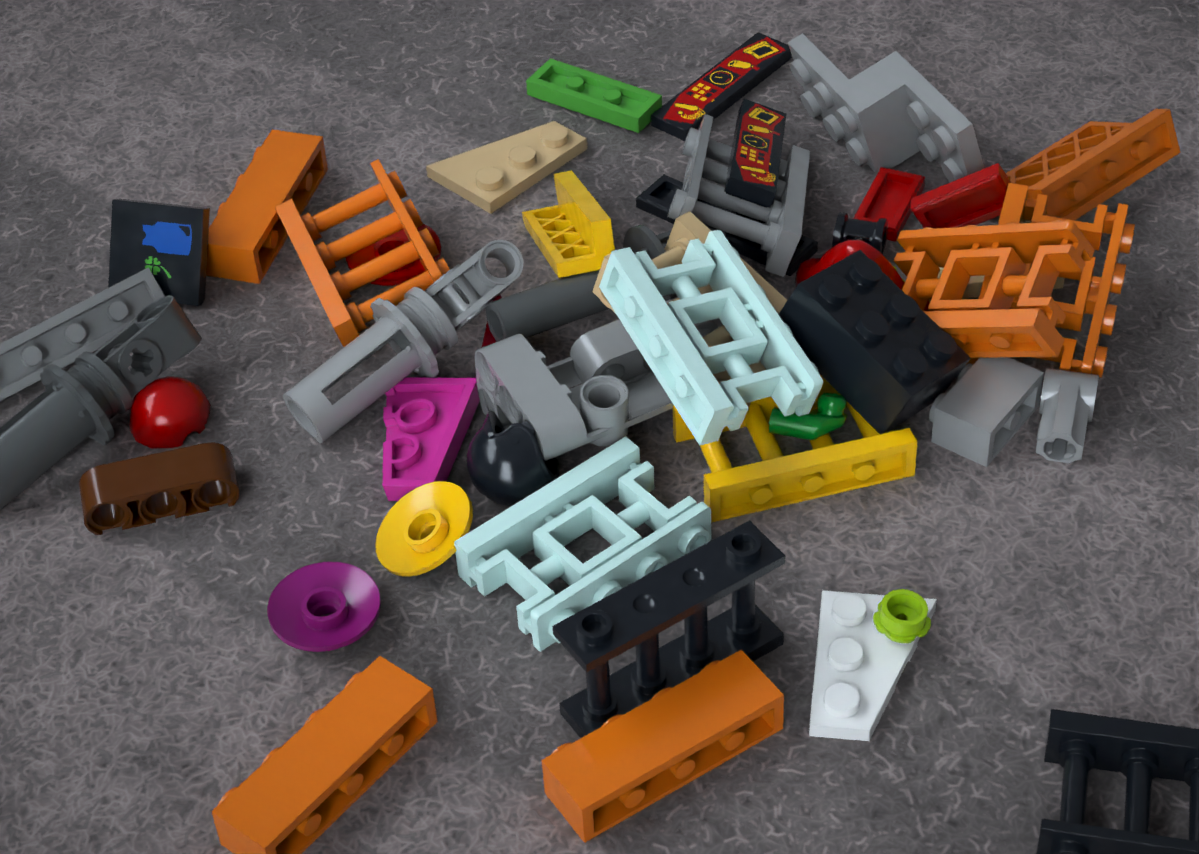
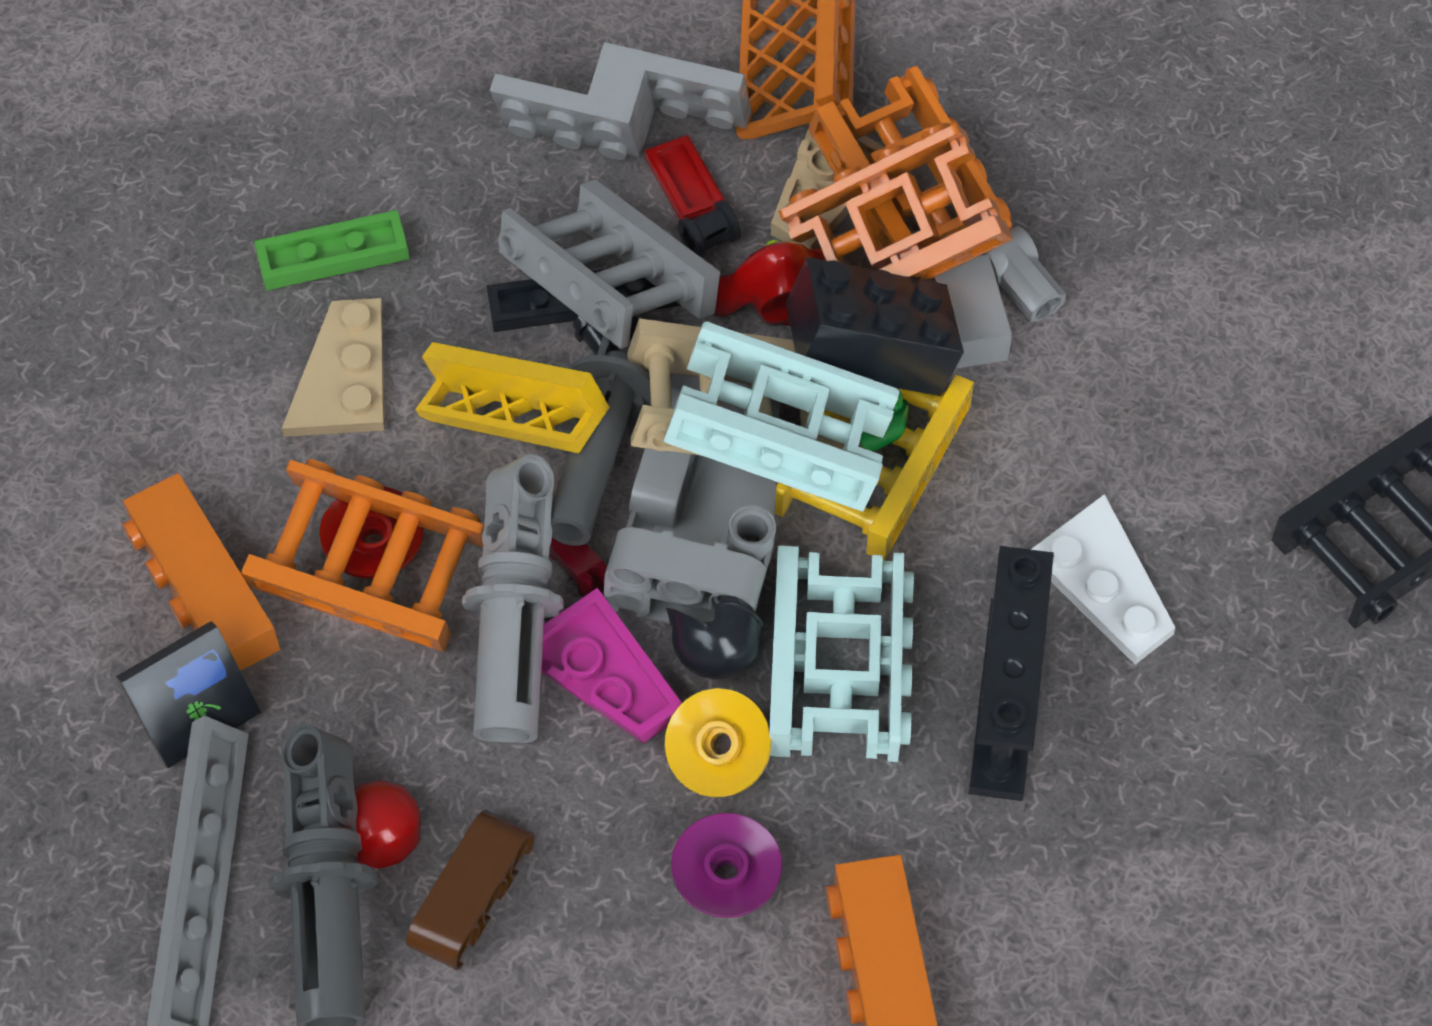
camera: 50 degrees left, 15 degrees up
(662, 744) = (1074, 755): orange brick -> none
(722, 85) = (421, 161): tile -> none
(756, 153) = (575, 215): tile -> none
(902, 616) = (1115, 517): lime plate -> none
(963, 201) = (767, 142): red tile -> none

